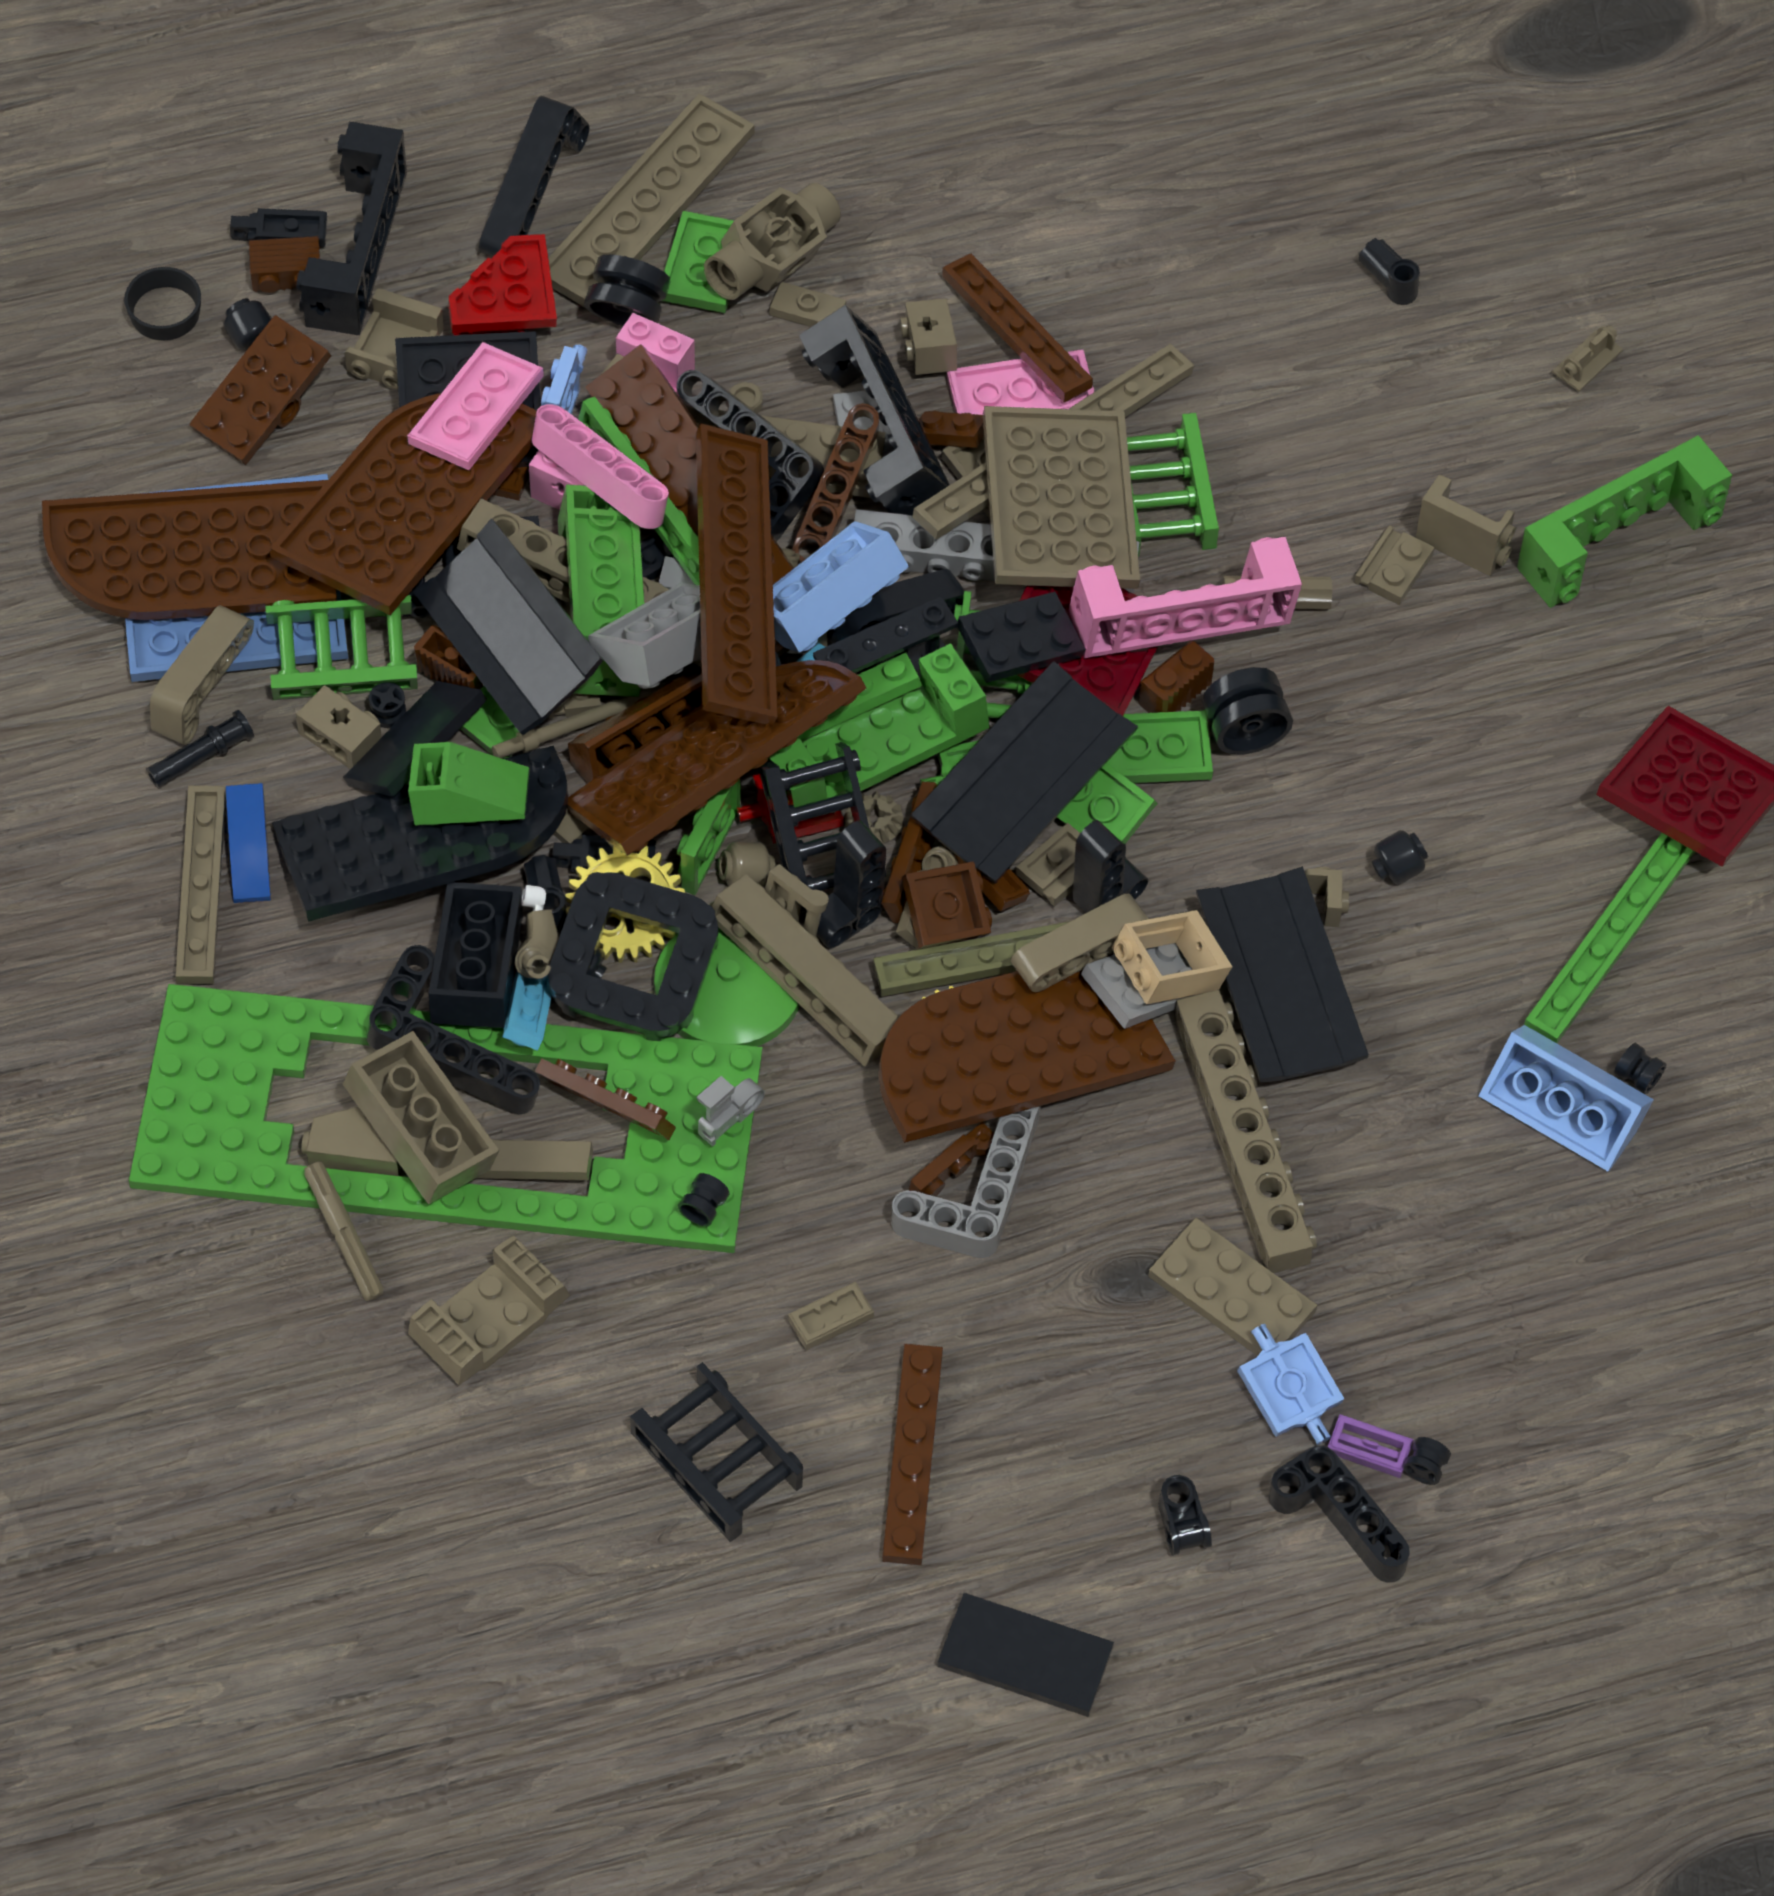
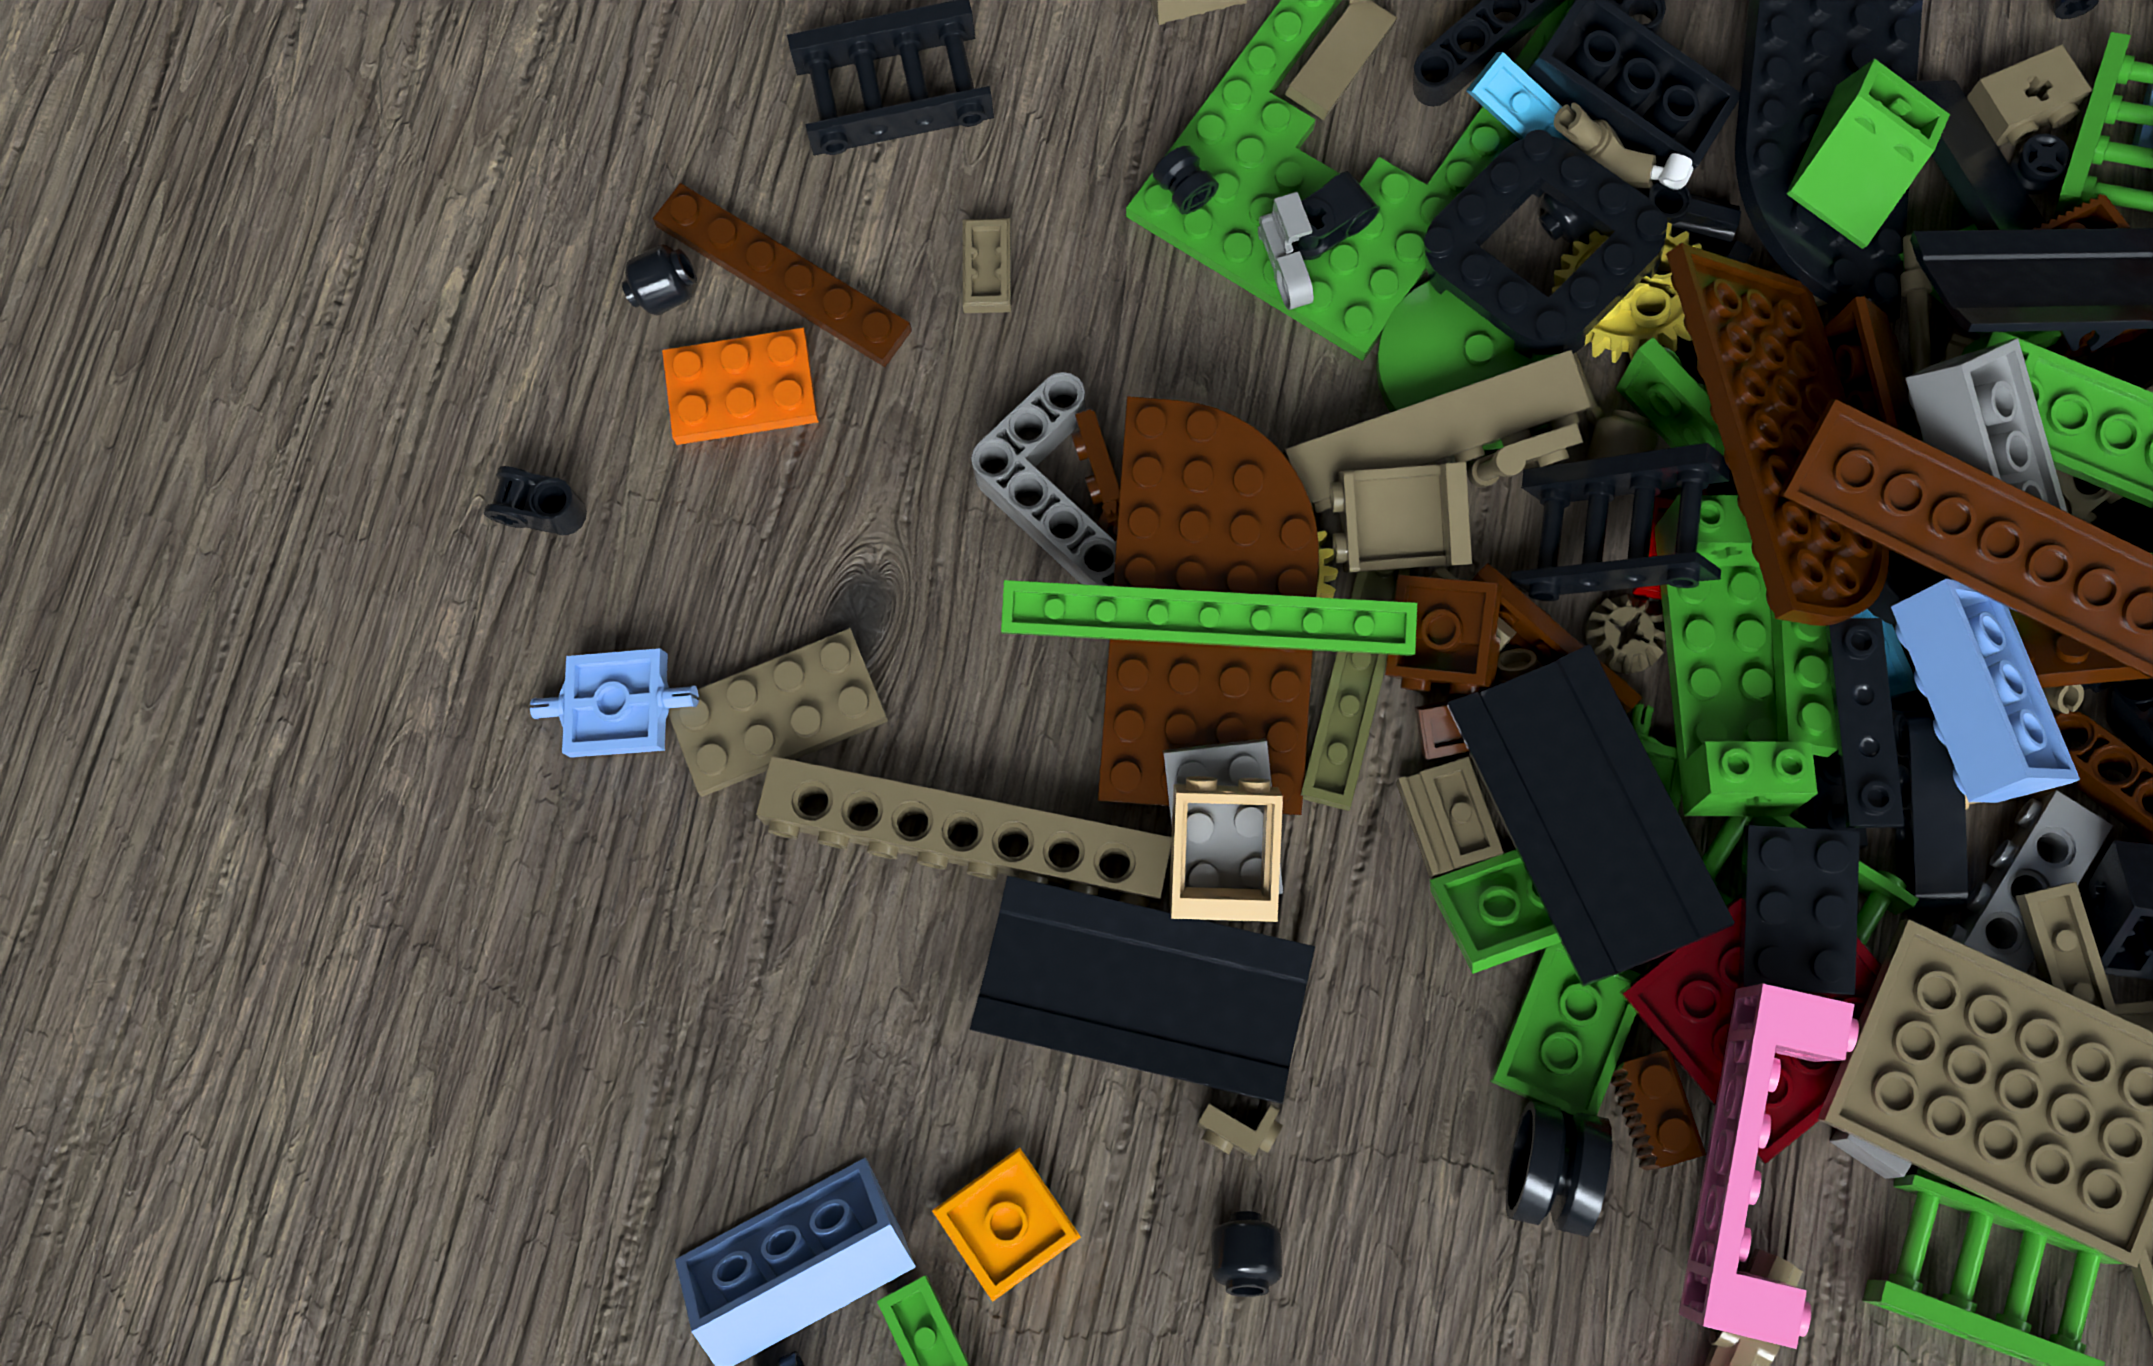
camera: 125 degrees right, 15 degrees up
(619, 1103) = (1371, 142): reddish brown plate -> none
(676, 1095) = (1335, 214): none -> black piece
(856, 885) = (1517, 519): black beam -> none
(882, 955) = (1402, 517): none -> dark tan panel
(969, 1523) = (659, 279): none -> black head
(1014, 1436) = (739, 386): none -> orange plate
(1025, 1654) = (490, 272): black tile -> none
(1029, 1027) = (1209, 618): none -> bright green plate
(1075, 943) = (1301, 755): dark tan beam -> none
(1103, 869) = (1378, 833): black beam -> none
(1344, 1516) = (427, 673): black beam -> none
(1367, 1459) = (511, 772): medium lavender tile -> none
(1427, 1460) = (434, 803): black wheel -> none
(1466, 995) = (1006, 1224): none -> light orange plate

